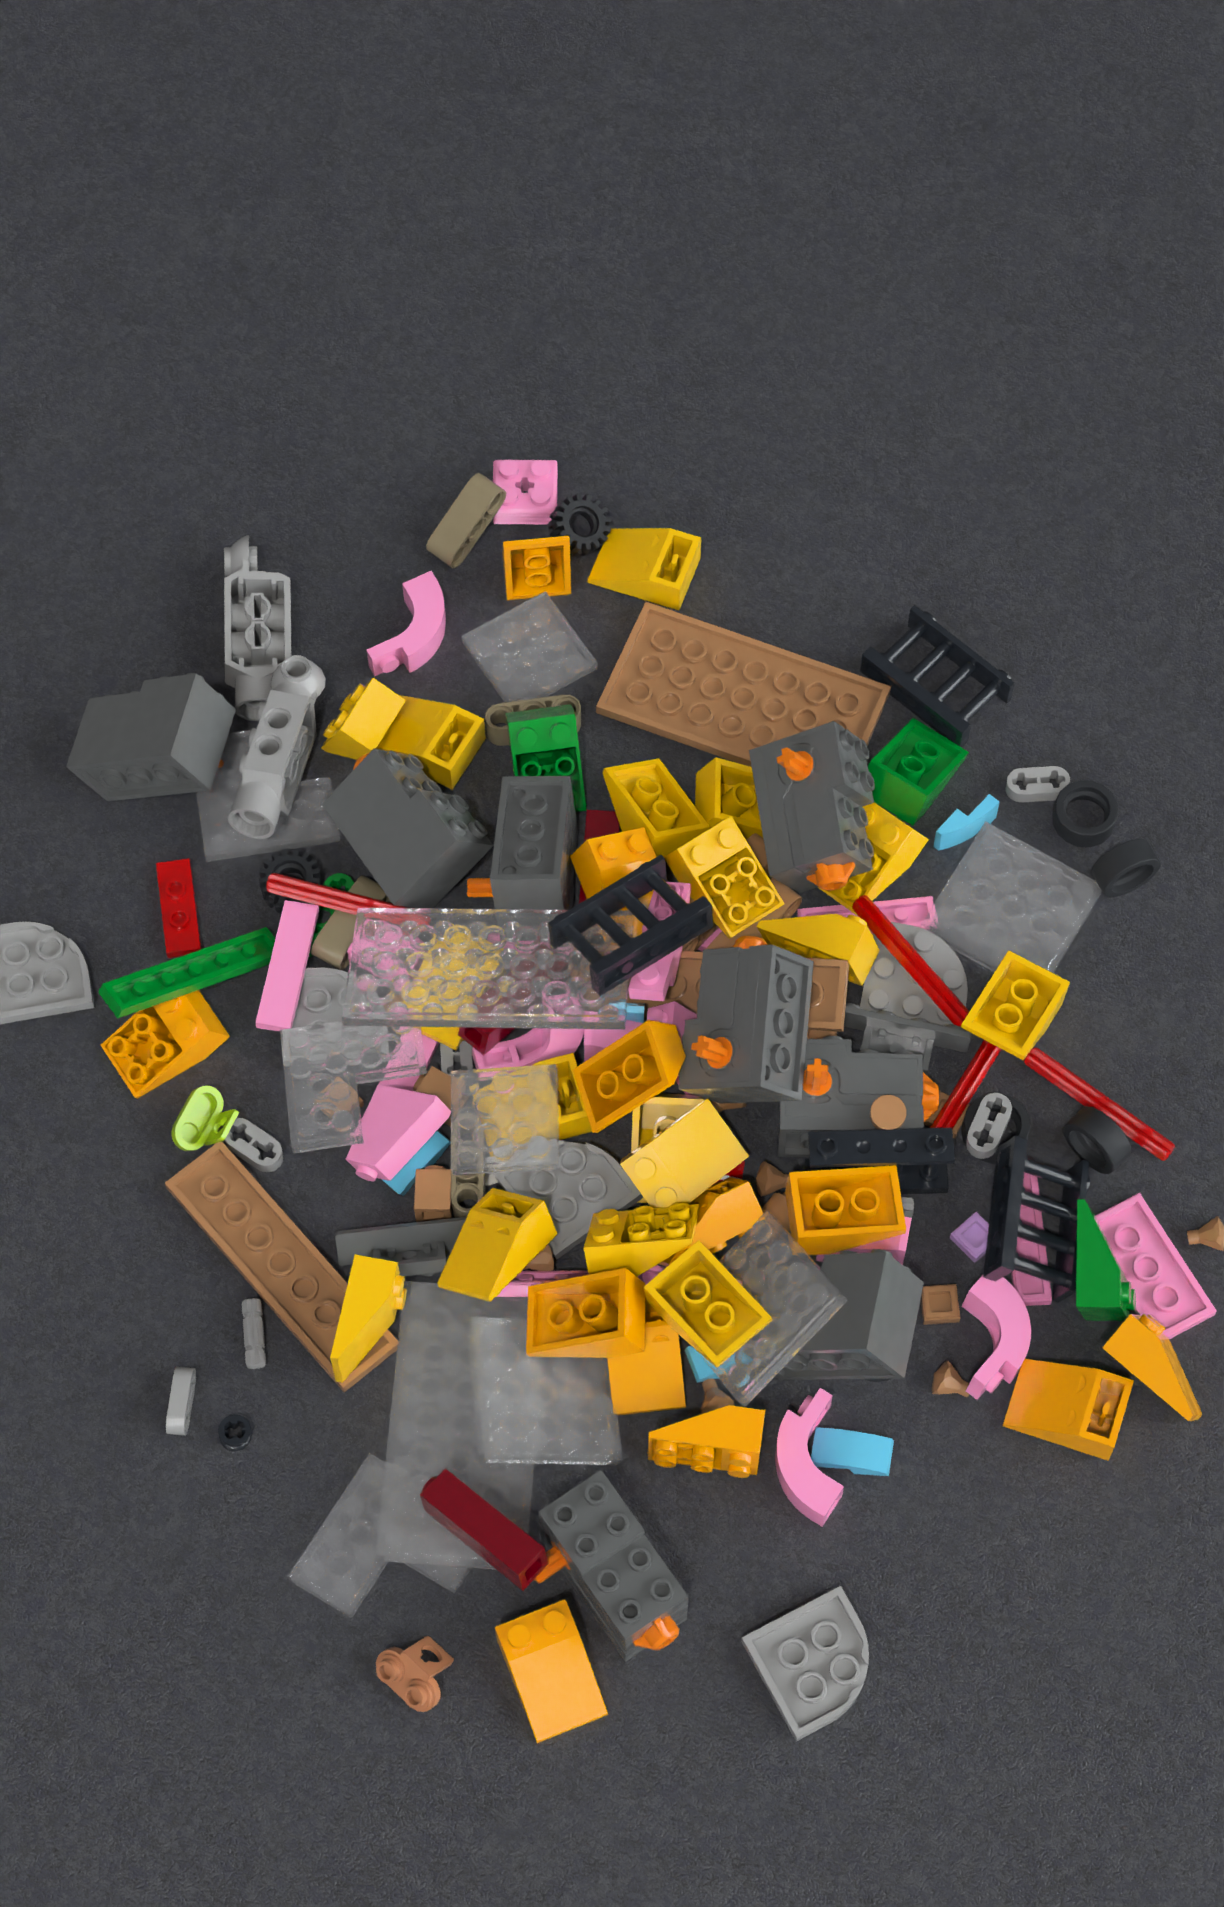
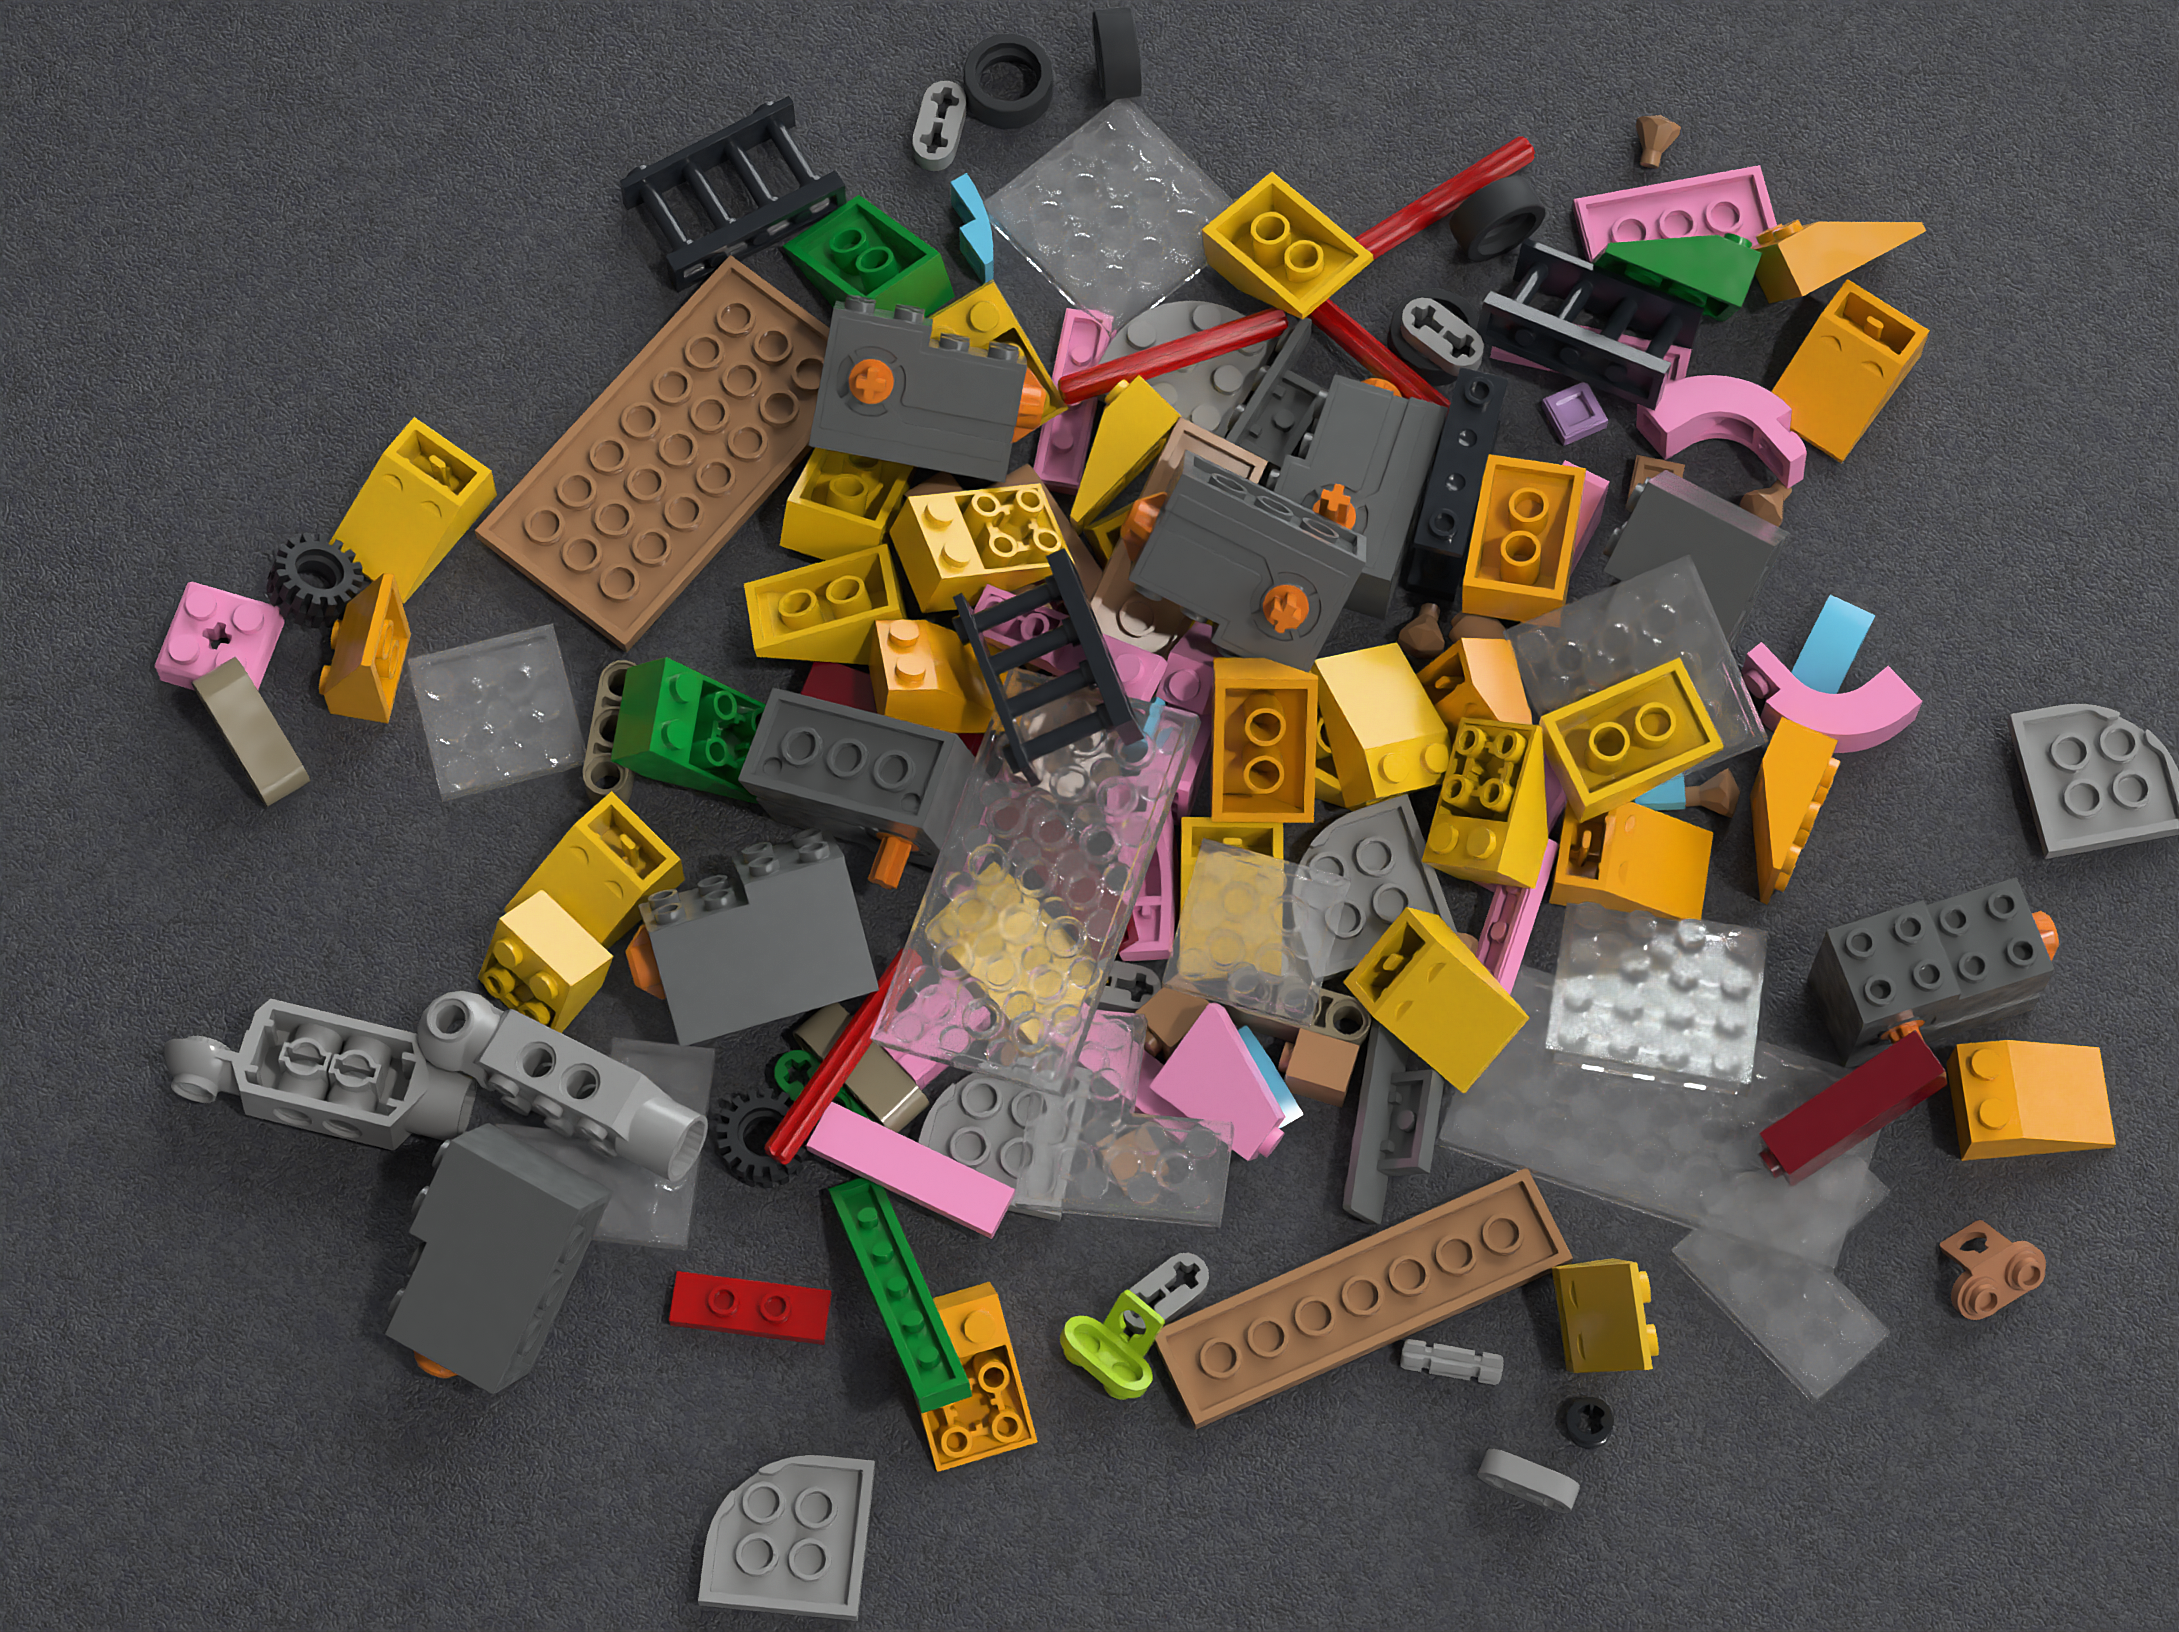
camera: 75 degrees left, 5 degrees up
(299, 1411) = (1604, 1316): none -> yellow slope
(367, 1311) = (1491, 1185): yellow slope -> none
(423, 635) = (393, 832): bright pink arch -> none
(587, 1316) = (1586, 903): light orange slope -> none
(887, 1112) = (1414, 438): medium nougat tile -> none

